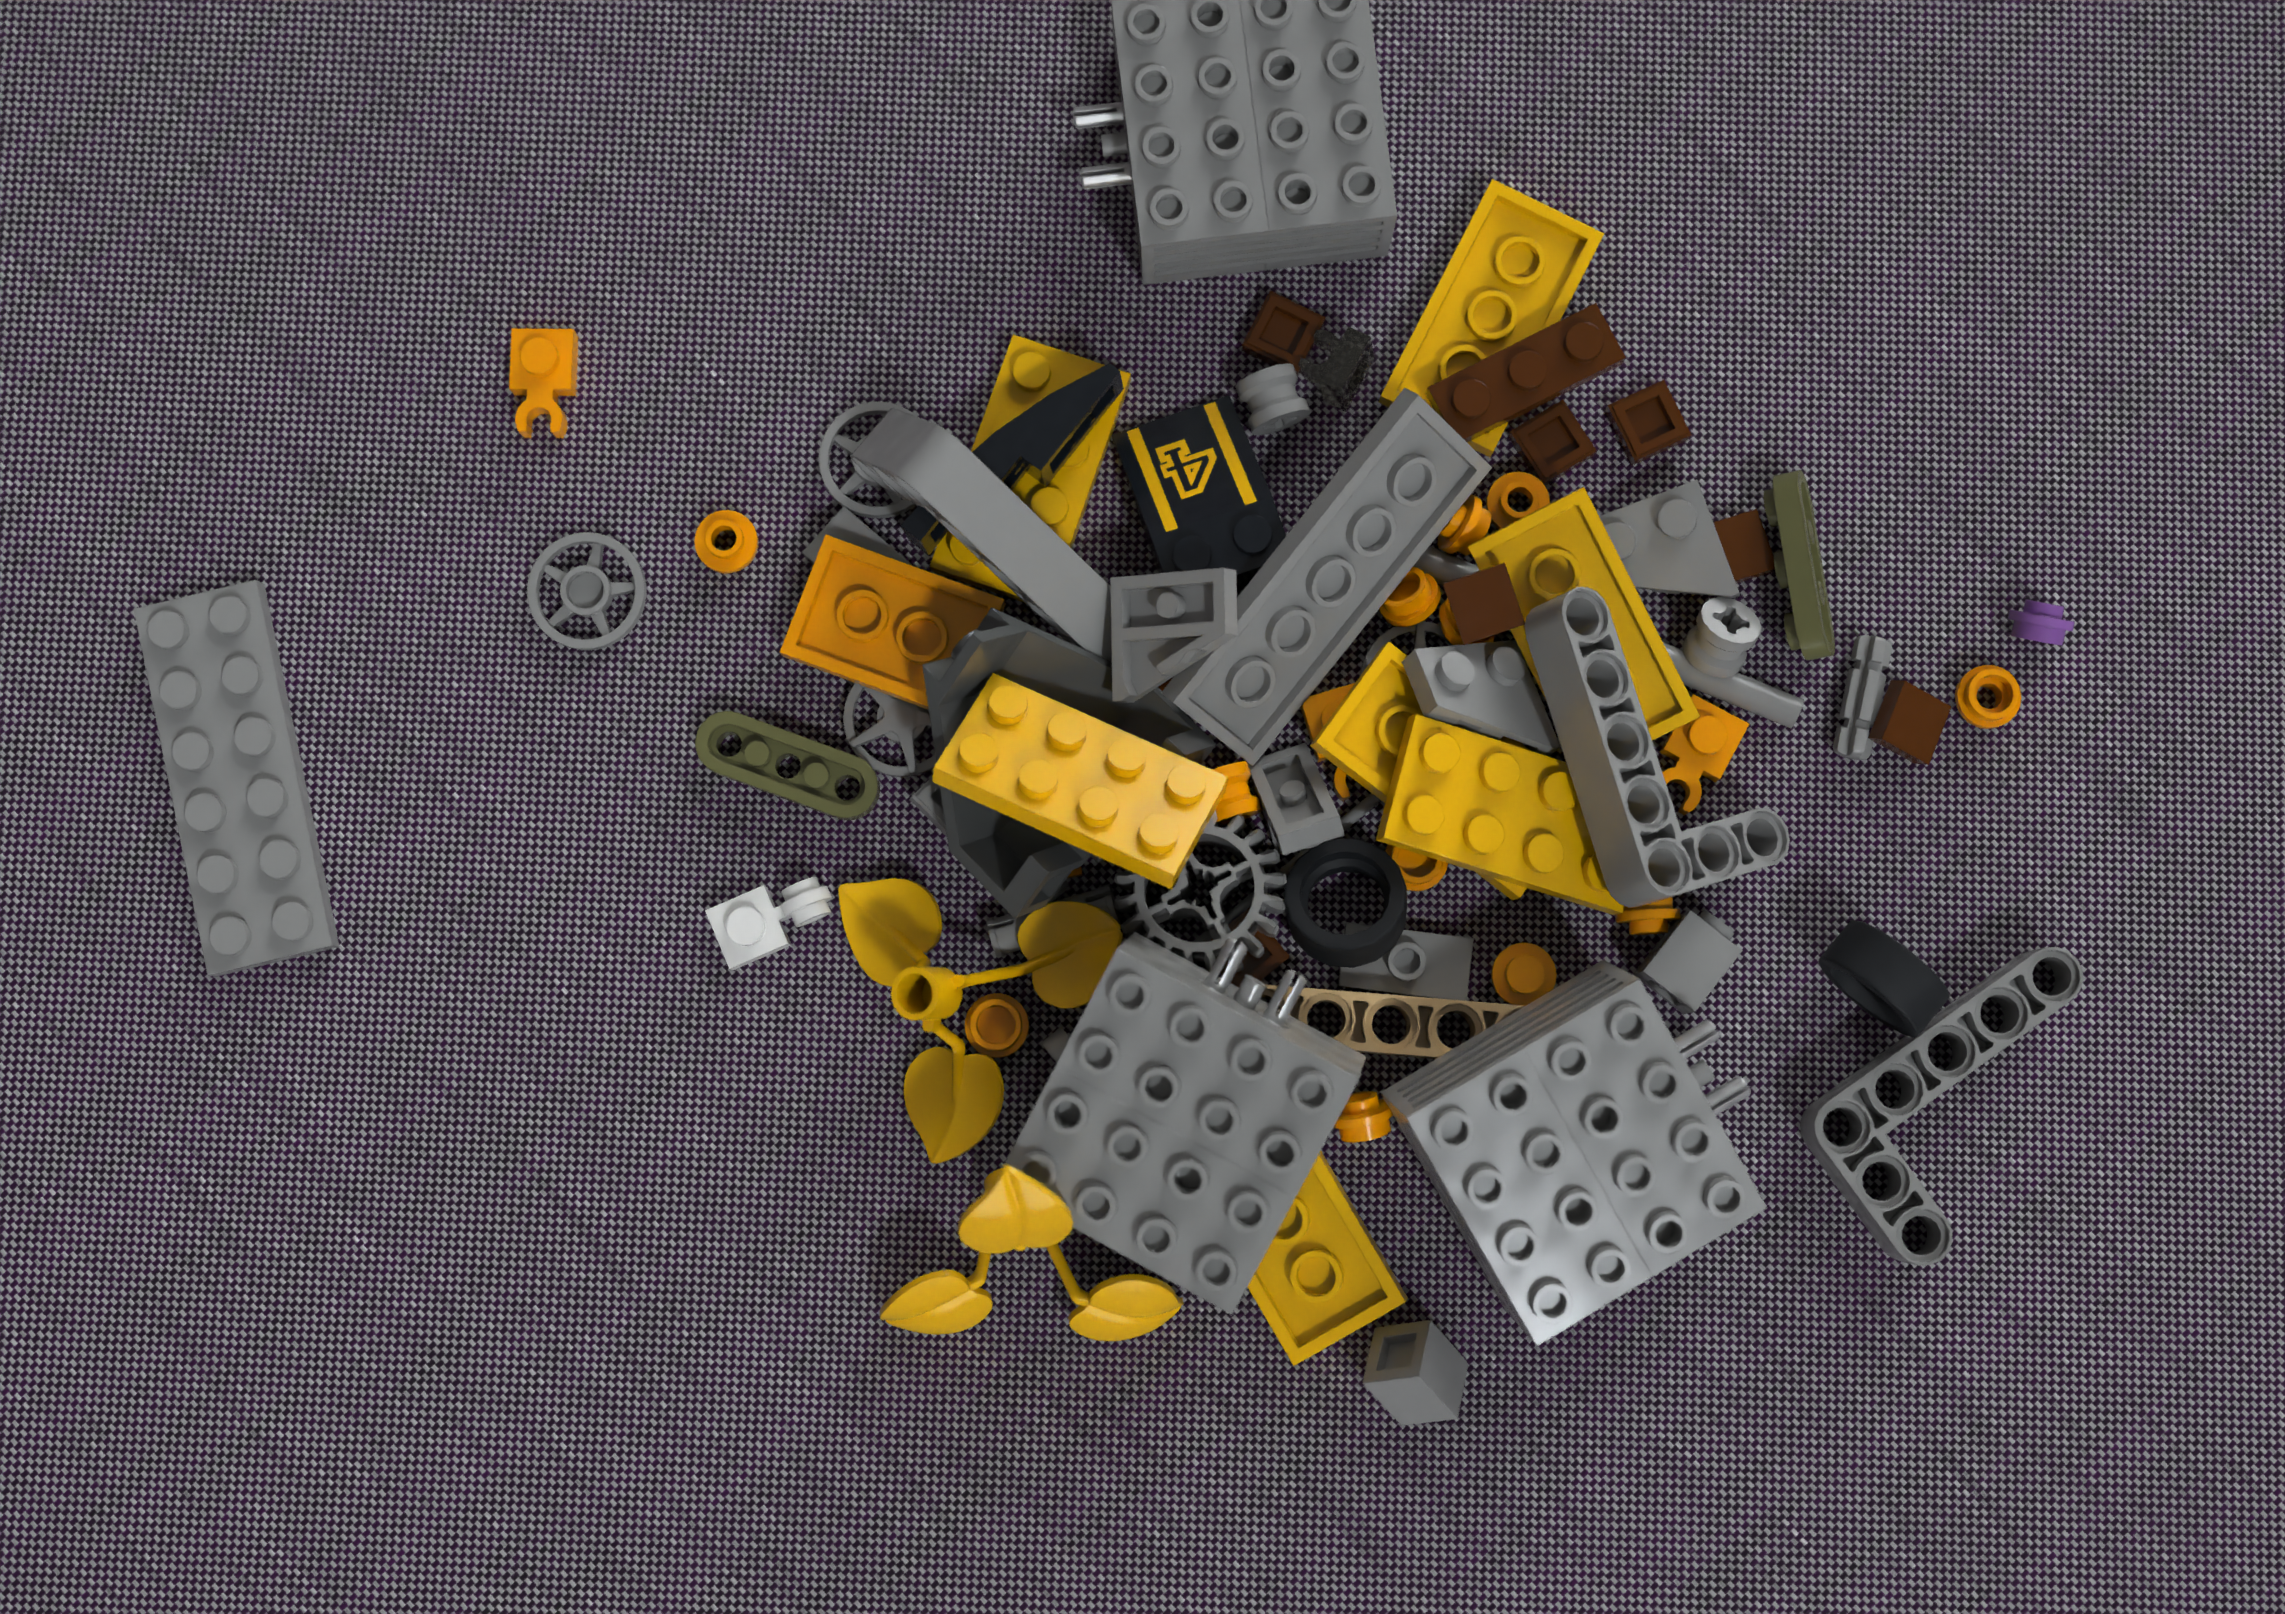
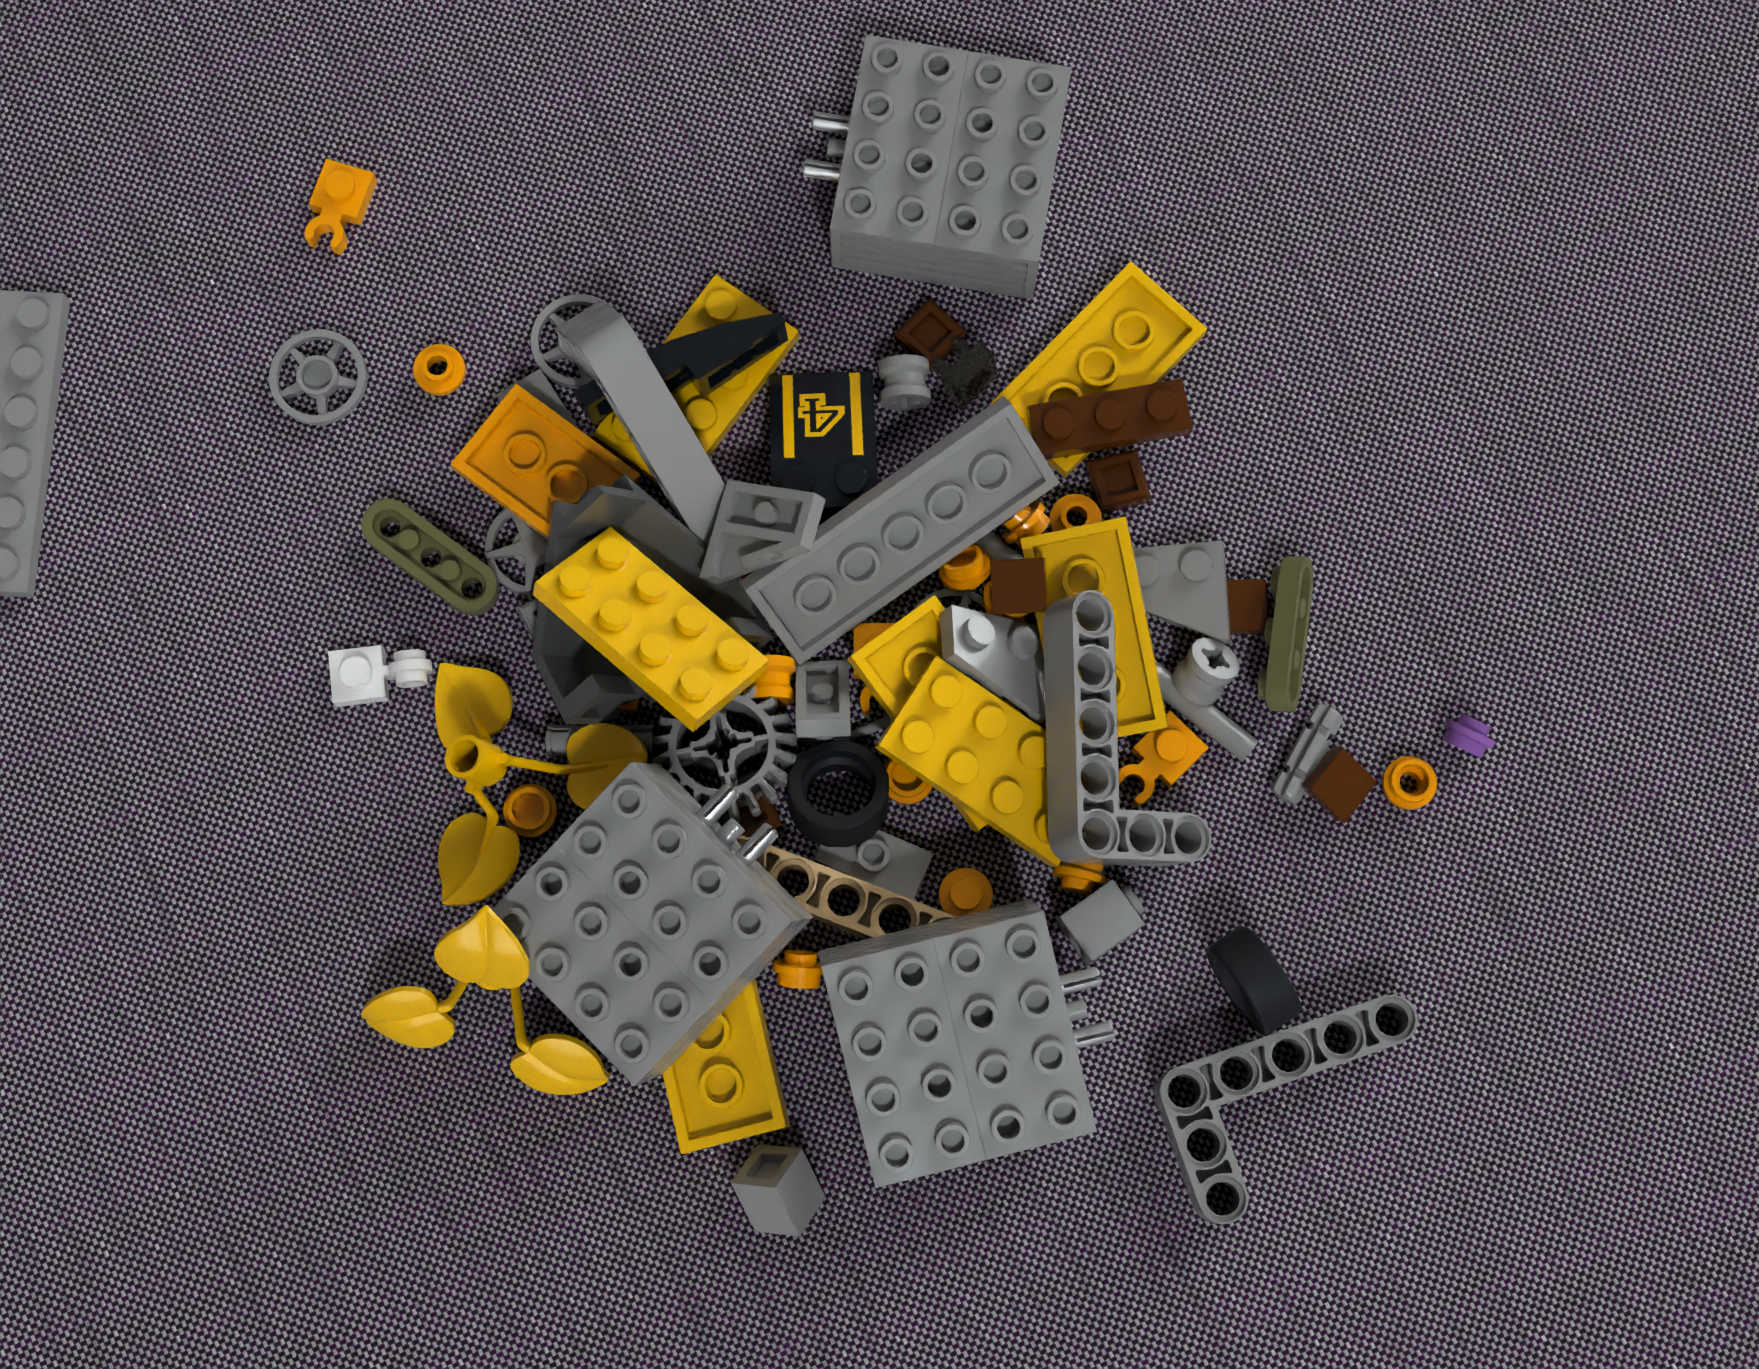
camera: 10 degrees right, 5 degrees down
(1647, 422) = (1199, 487): reddish brown tile -> none

